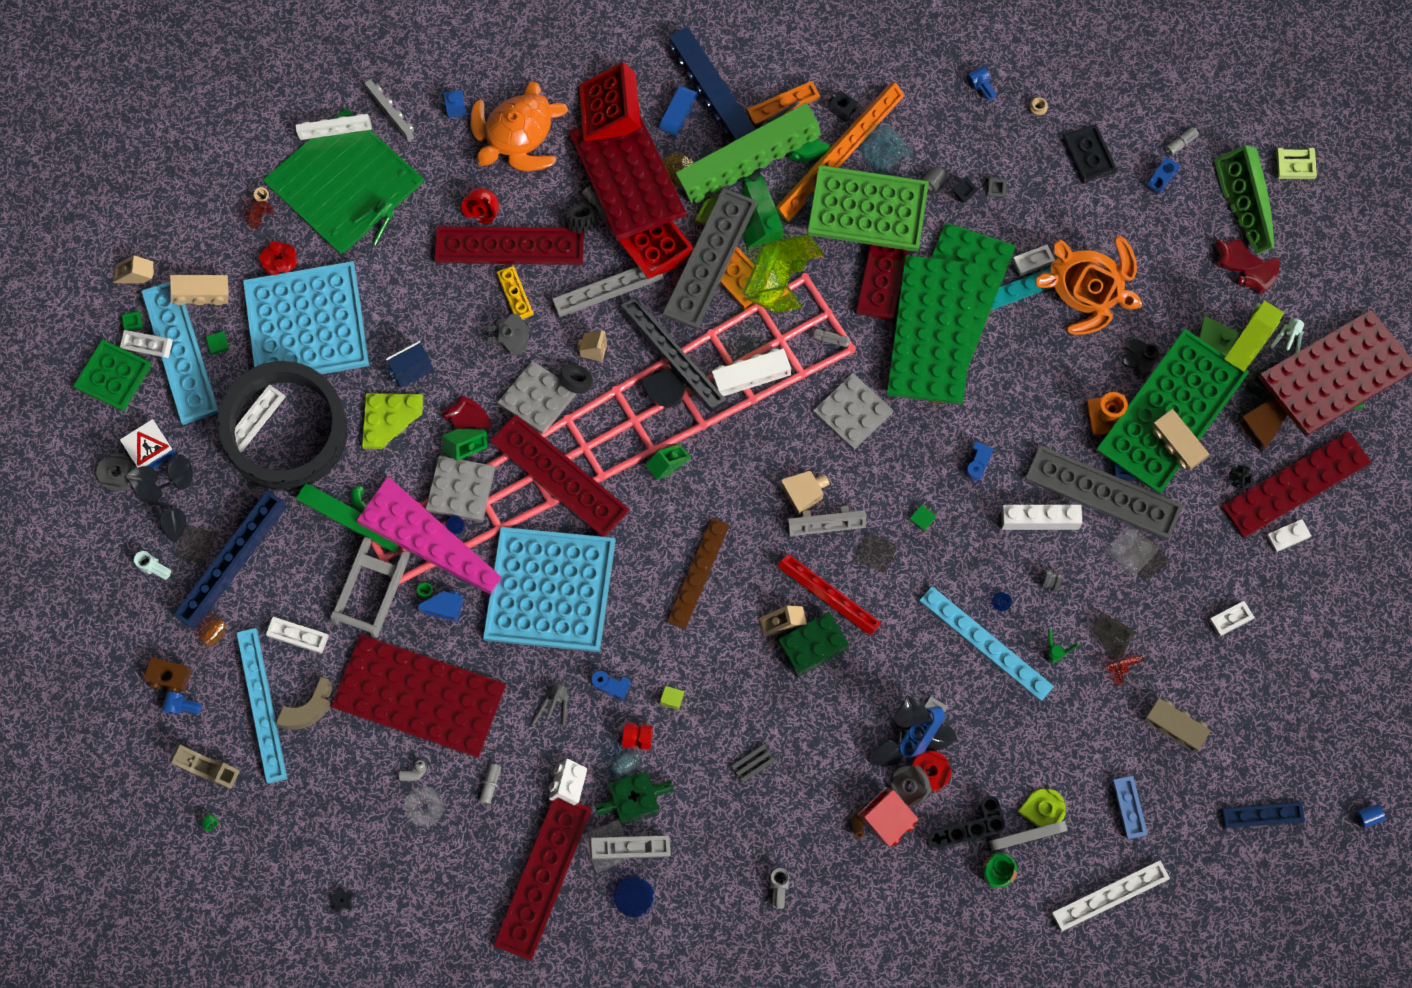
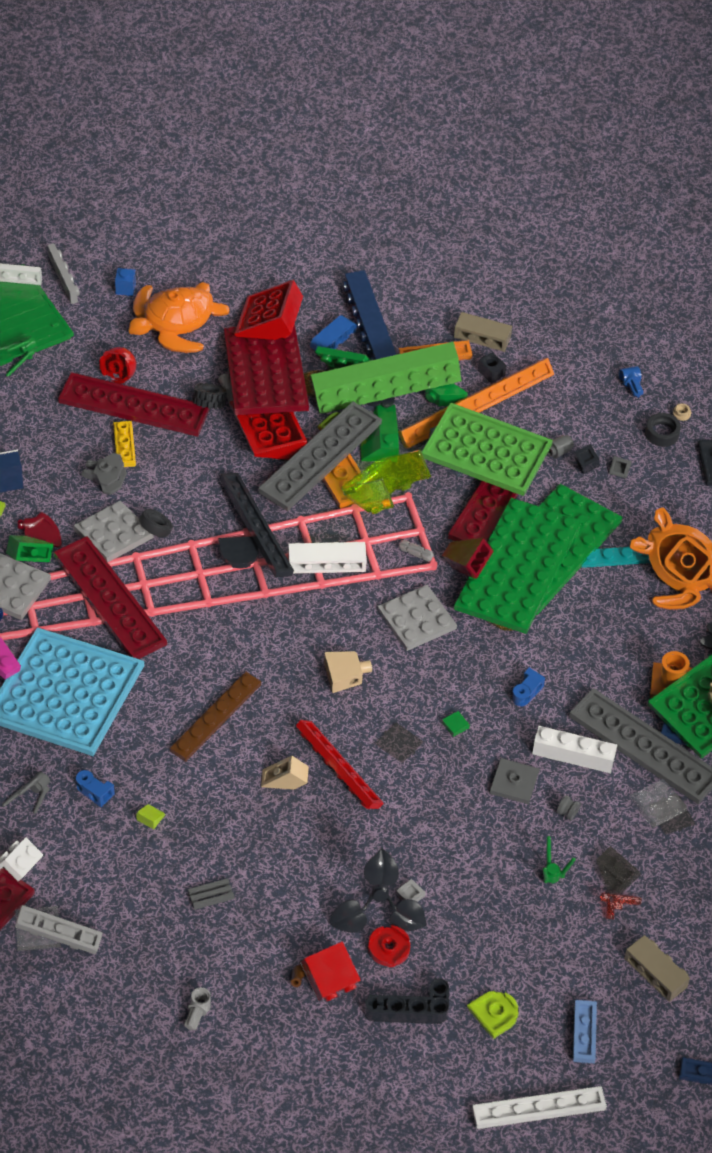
camera: 10 degrees right, 20 degrees down
(593, 345) = (183, 500): tan slope -> none
(602, 291) = (210, 460): light grey plate -> none
(625, 764) = (82, 860): clear light blue head -> none
(634, 897) = (47, 980): clear blue tile -> none
(637, 736) = (109, 837): red wheel -> none
(646, 802) = (79, 890): dark green brick -> none
(667, 461) = (219, 612): green slope -> none
(702, 144) = (337, 358): none -> green plate
(813, 644) = (308, 802): dark green brick -> none
(822, 65) = (483, 331): none -> dark tan brick
(827, 523) = (358, 702): light grey hinge -> none
(885, 149) = (521, 410): clear light blue bracket -> none
(885, 335) = (468, 556): none -> dark red slope
(915, 736) = (390, 901): blue beam -> none
(920, 782) = (373, 952): dark grey plate -> none
(986, 644) = (484, 849): medium azure plate -> none
(994, 564) = (514, 781): none -> dark grey plate
(999, 870) = (429, 1051): green hair -> none
(1001, 601) = (511, 814): clear blue plate -> none
(1022, 144) = (659, 439): none -> black tyre
(1028, 836) = (469, 1027): light grey beam -> none
(1033, 260) = (629, 532): white plate -> none

